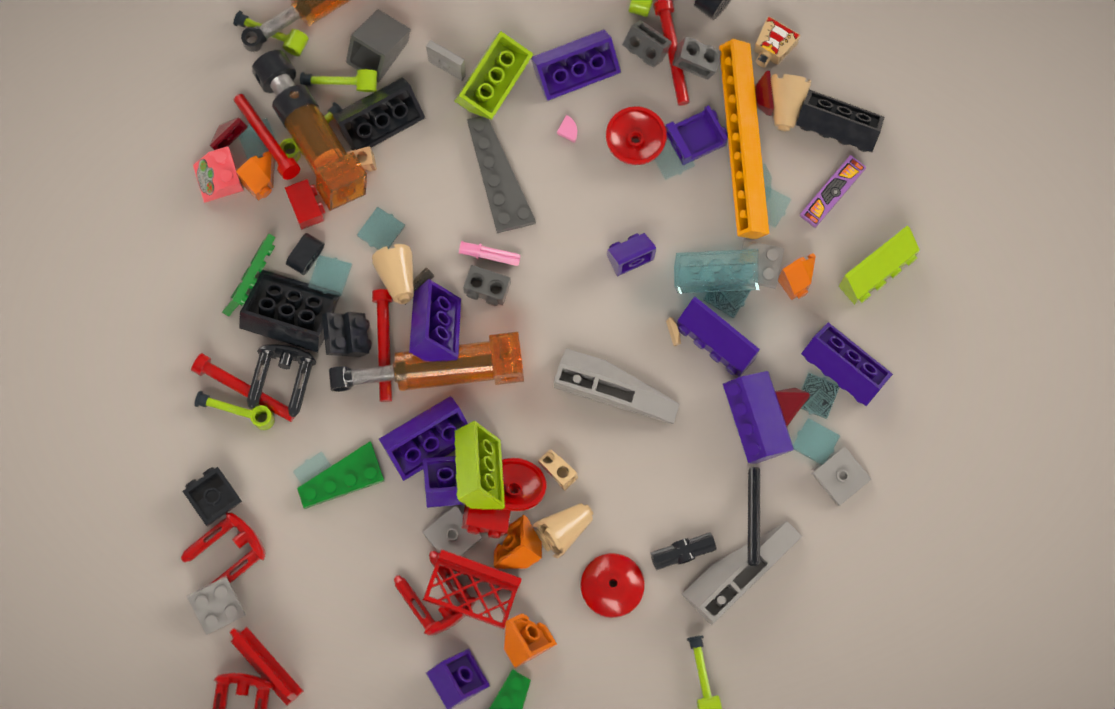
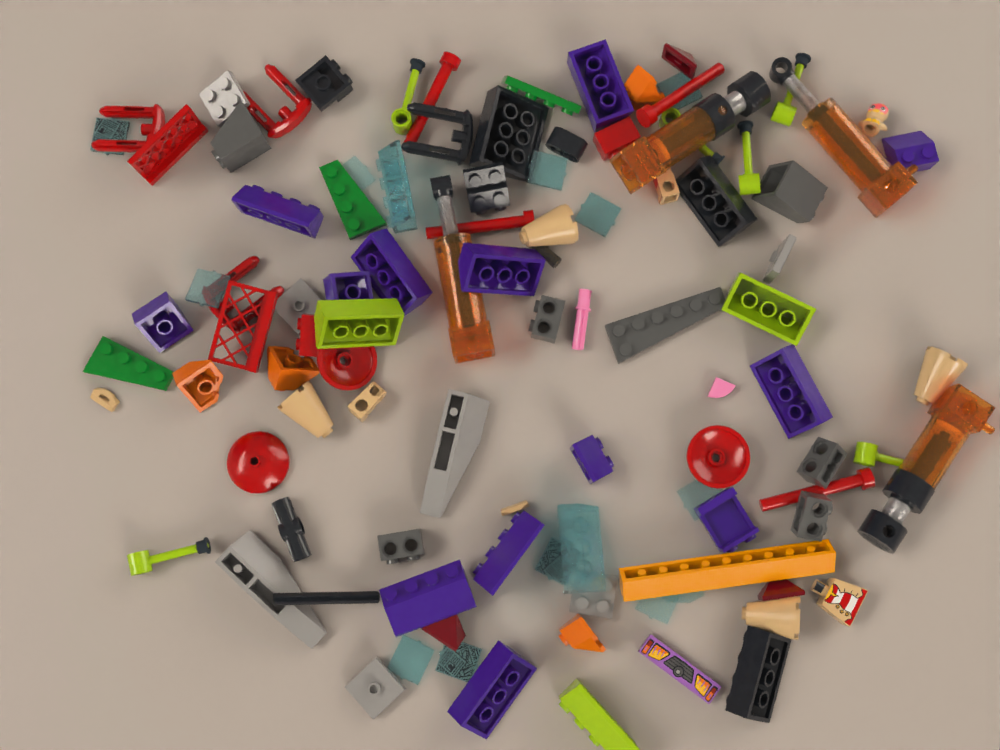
camera: 90 degrees right, 5 degrees up
(217, 175) = (641, 51): coral slope -> none
(247, 214) = (599, 85): none -> dark purple slope
(267, 584) = (238, 140): none -> dark grey slope
(336, 424) = (397, 188): none -> clear light blue slope
(348, 549) = (278, 210): none -> dark purple slope
(427, 625) = (207, 288): none -> clear light blue piece
(700, 442) = (400, 540): none -> dark grey brick

